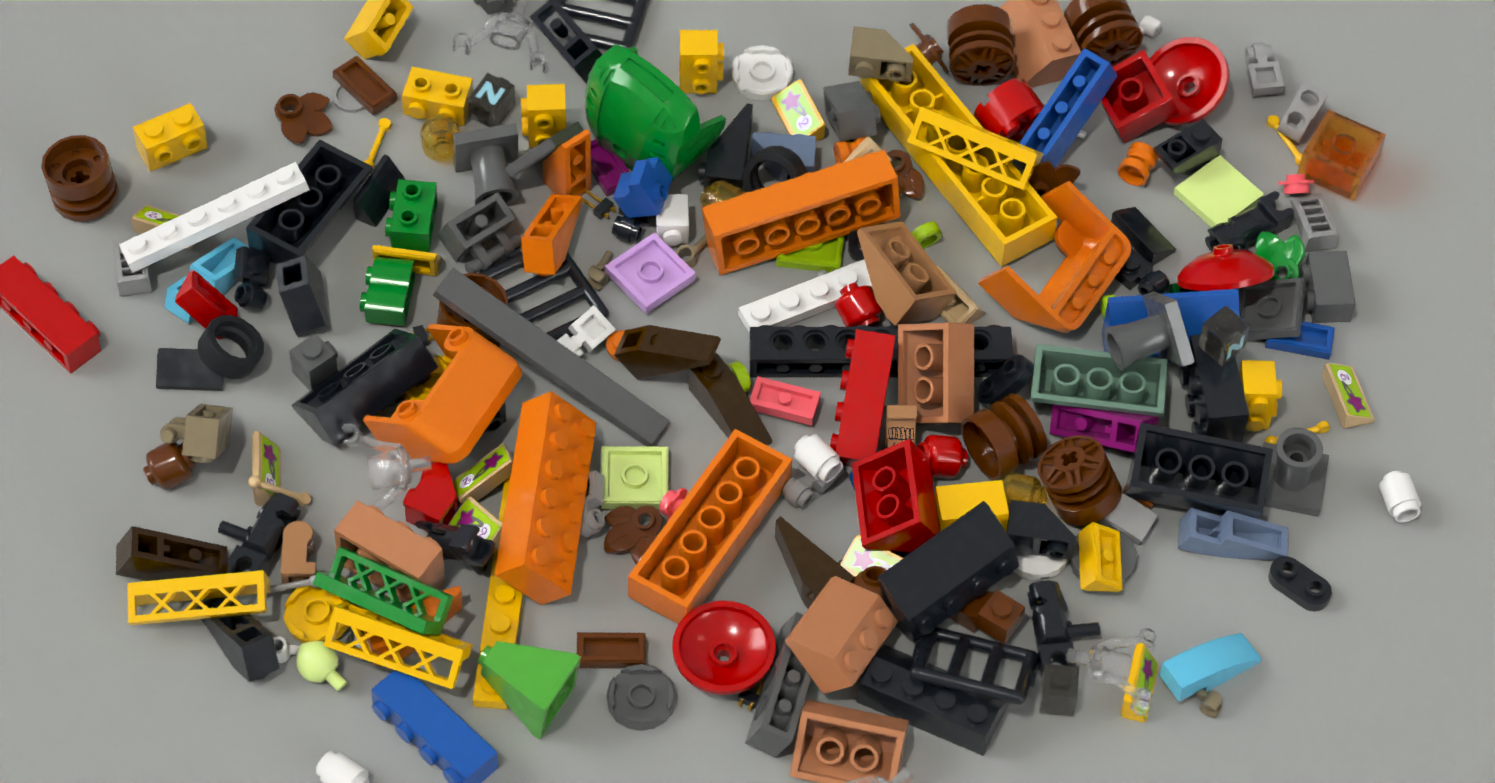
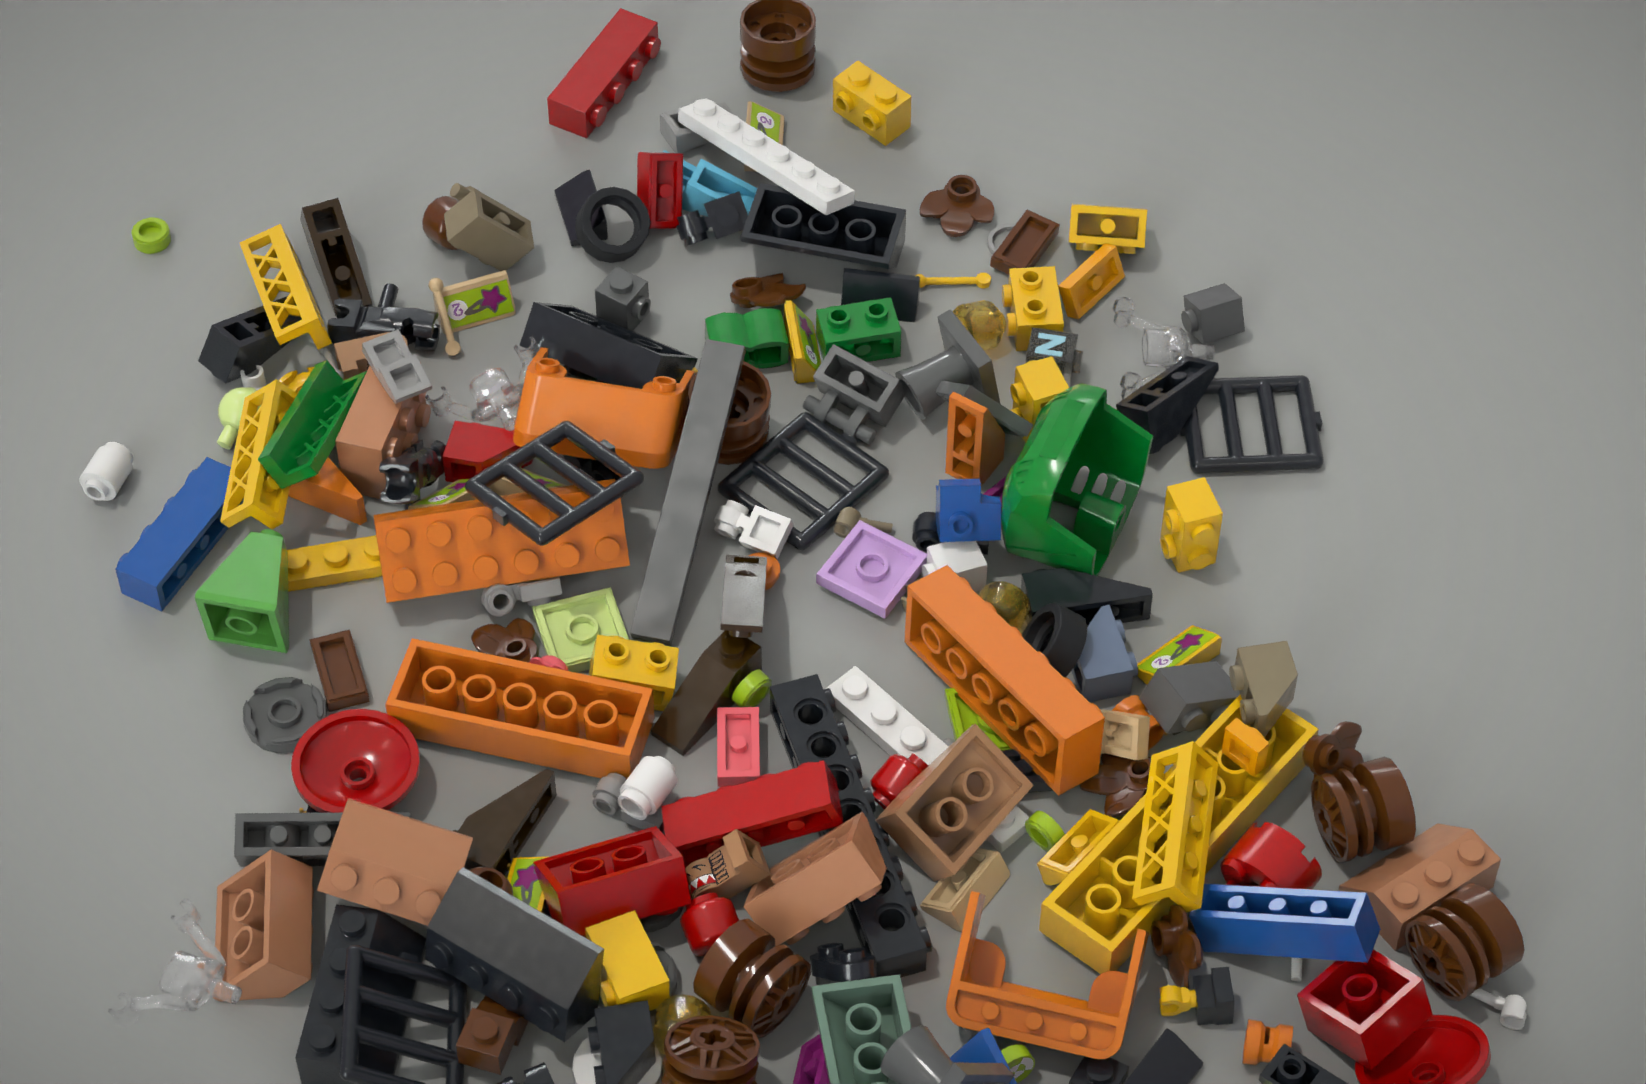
camera: 75 degrees right, 5 degrees down
(71, 697) = (151, 235): none -> lime tile
(302, 295) = (705, 264): black slope -> none
(343, 265) = (764, 291): none -> reddish brown plate
(371, 514) = (396, 366): none -> light grey slope
(418, 45) = (1091, 281): none -> light orange plate
(505, 460) = (568, 515): none -> black bar
(550, 234) = (870, 451): orange slope -> none
(696, 445) = (637, 664): none -> yellow brick
(761, 72) = (1227, 606): white tile -> none
(925, 83) = (1245, 747): none -> light orange plate
(951, 216) = (1074, 846): none -> yellow slope
(1092, 180) = (1210, 996): none -> black piece

